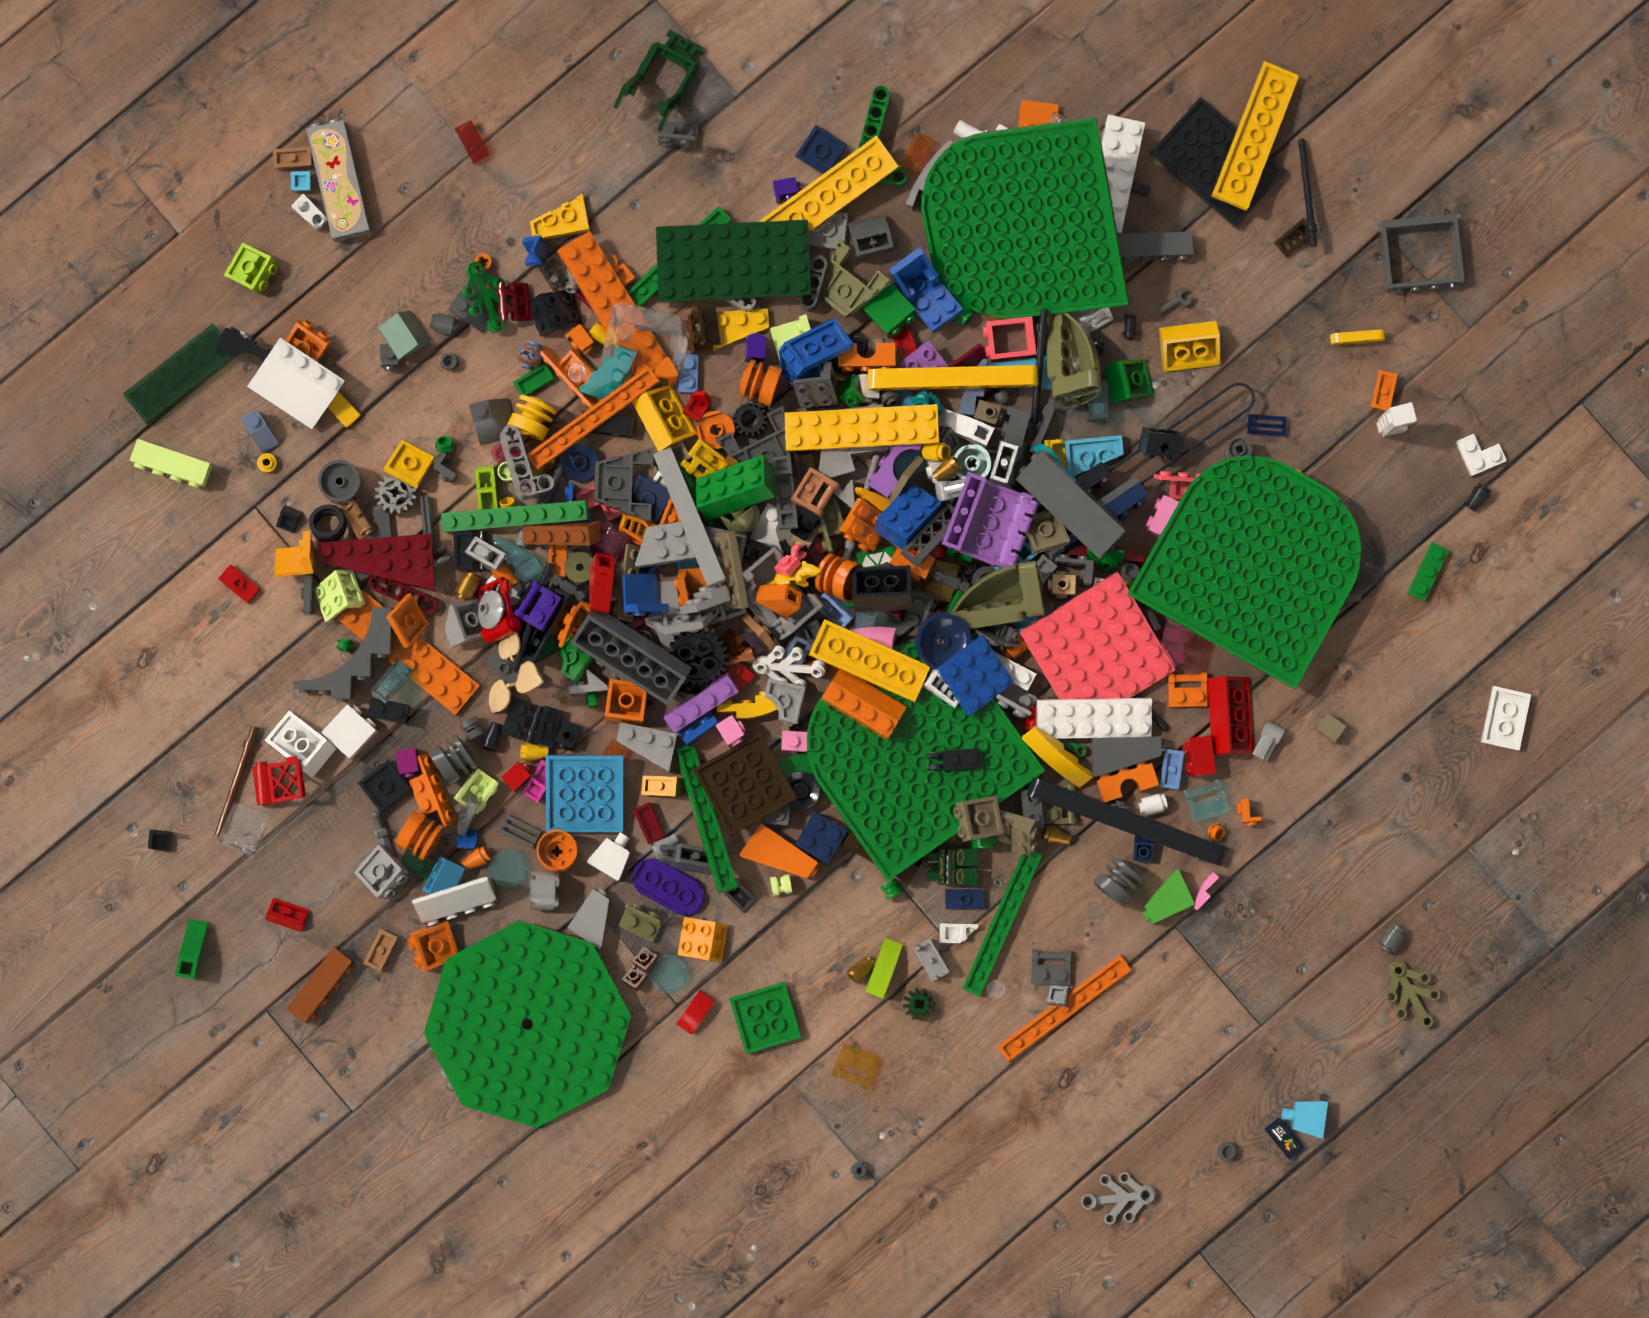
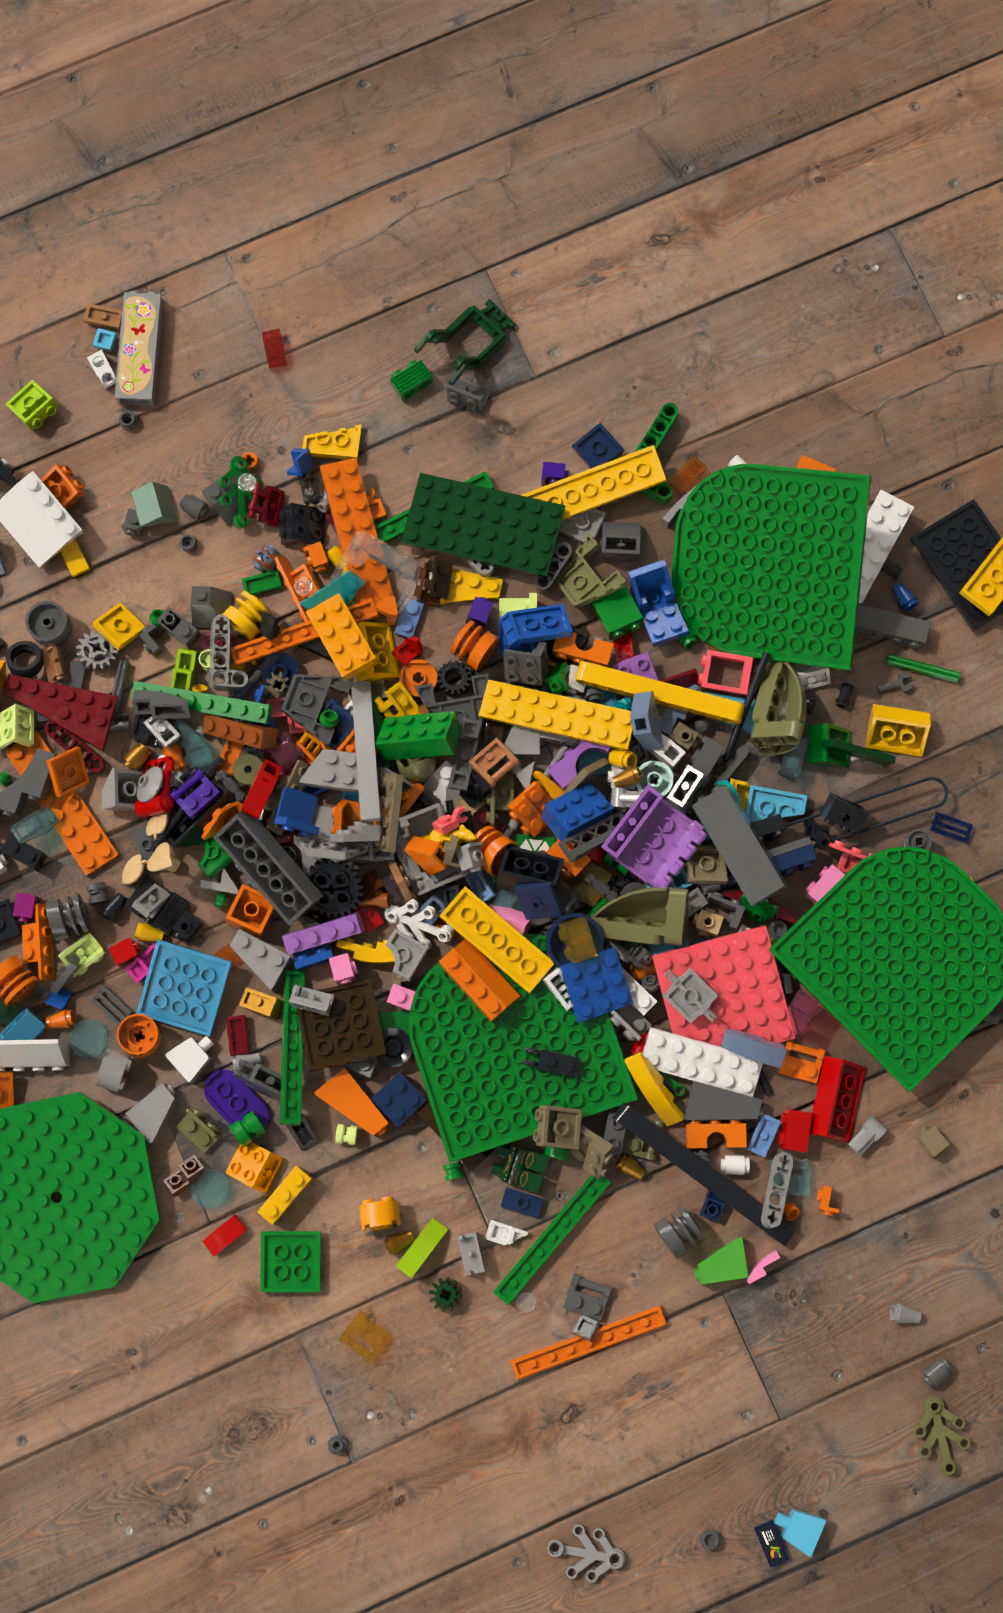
camera: 25 degrees right, 5 degrees down
(348, 250) = (127, 415): none -> dark grey plate
(468, 448) = (179, 628): none -> dark grey slope
(477, 530) = (160, 705): none -> dark grey slope
(486, 283) = (245, 478): none -> clear plate
(528, 720) = (151, 901): none -> light grey slope
(558, 423) = (269, 626): none -> black slope
(578, 479) = (275, 688): none -> dark tan gear
(617, 134) = (411, 379): none -> green brick
(632, 413) = (342, 637): none -> light orange brick
(643, 495) = (329, 718): none -> green plate
(687, 907) = (248, 1128): none -> green wheel
(711, 769) = (311, 1000): none -> light grey hinge
(741, 958) = (285, 1195): none -> yellow brick
(745, 547) = (409, 797): none -> orange plate
(804, 593) = (450, 853): none -> dark tan bracket
(821, 590) = (470, 857): none -> light grey brick
(835, 949) = (379, 1214): none -> light orange brick
(898, 612) = (538, 900): none -> dark blue plate
(945, 639) = (577, 940): none -> clear yellow brick
(948, 410) = (646, 721): none -> sand blue slope
(1025, 658) = (650, 983): none -> dark grey plate
(1066, 659) = (690, 995): none -> light grey plate
(1139, 690) = (754, 1047): none -> sand blue slope
(1141, 468) = (817, 832): none -> black axle
(1158, 379) = (858, 751): none -> dark green tile
(1161, 213) = (905, 597): none -> blue cone
(1197, 278) = (923, 668): none -> green axle
(1198, 816) = (780, 1191): none -> light grey beam
(1348, 895) = (903, 1314): none -> light grey cone

